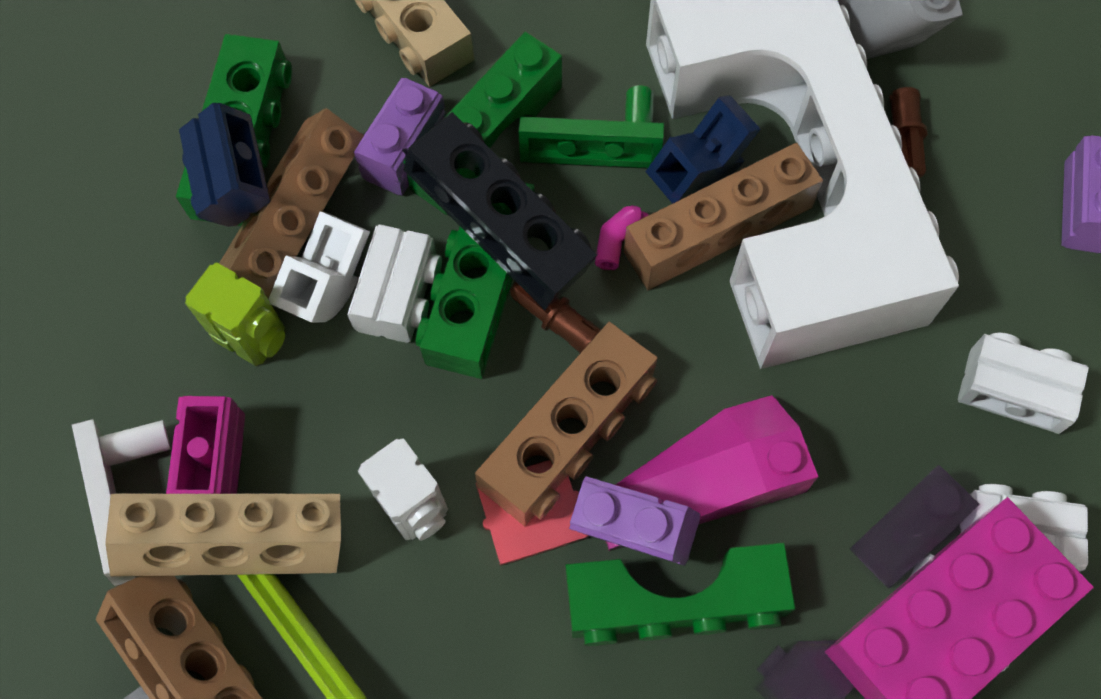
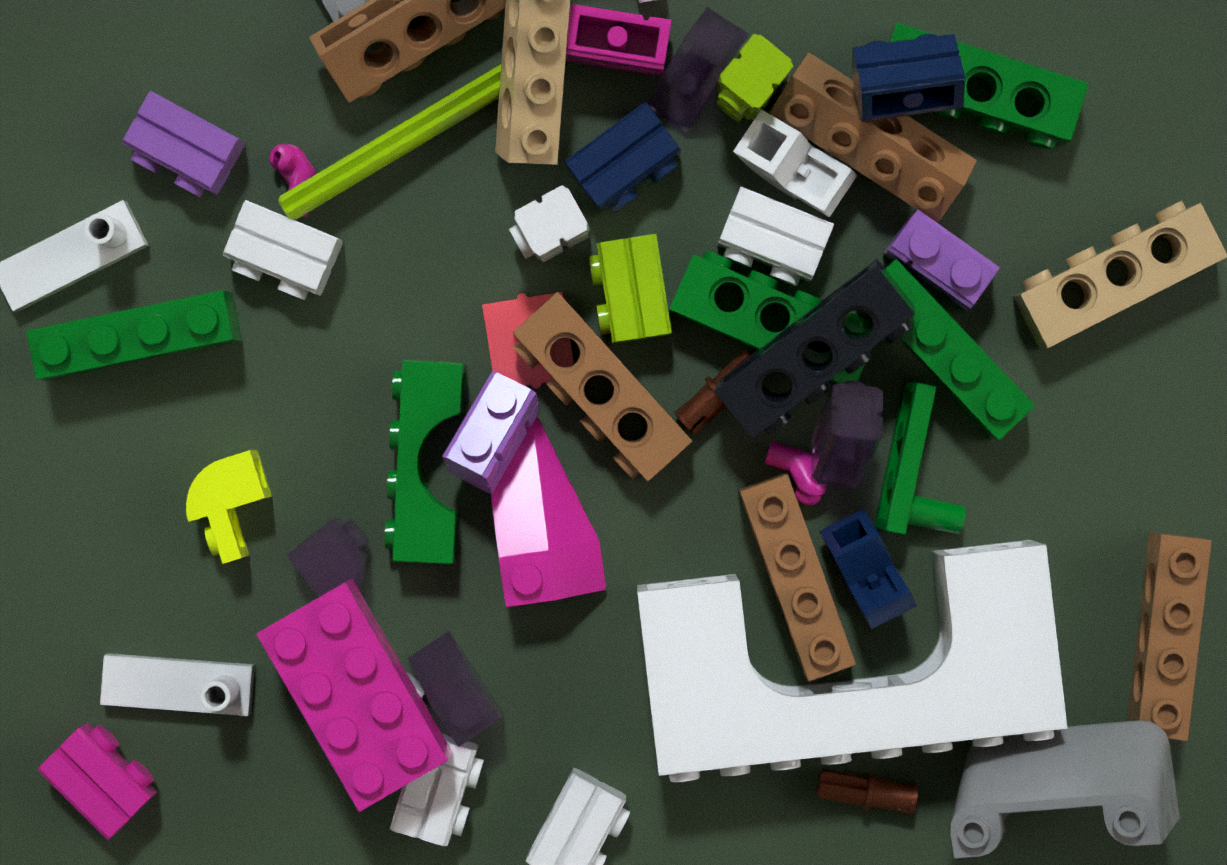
camera: 95 degrees right, 20 degrees up
(222, 367) = (696, 69): none -> clear purple slope
(328, 434) = (624, 158): none -> dark blue brick
(463, 409) = (632, 289): none -> lime brick
(578, 179) = (846, 434): none -> clear purple brick

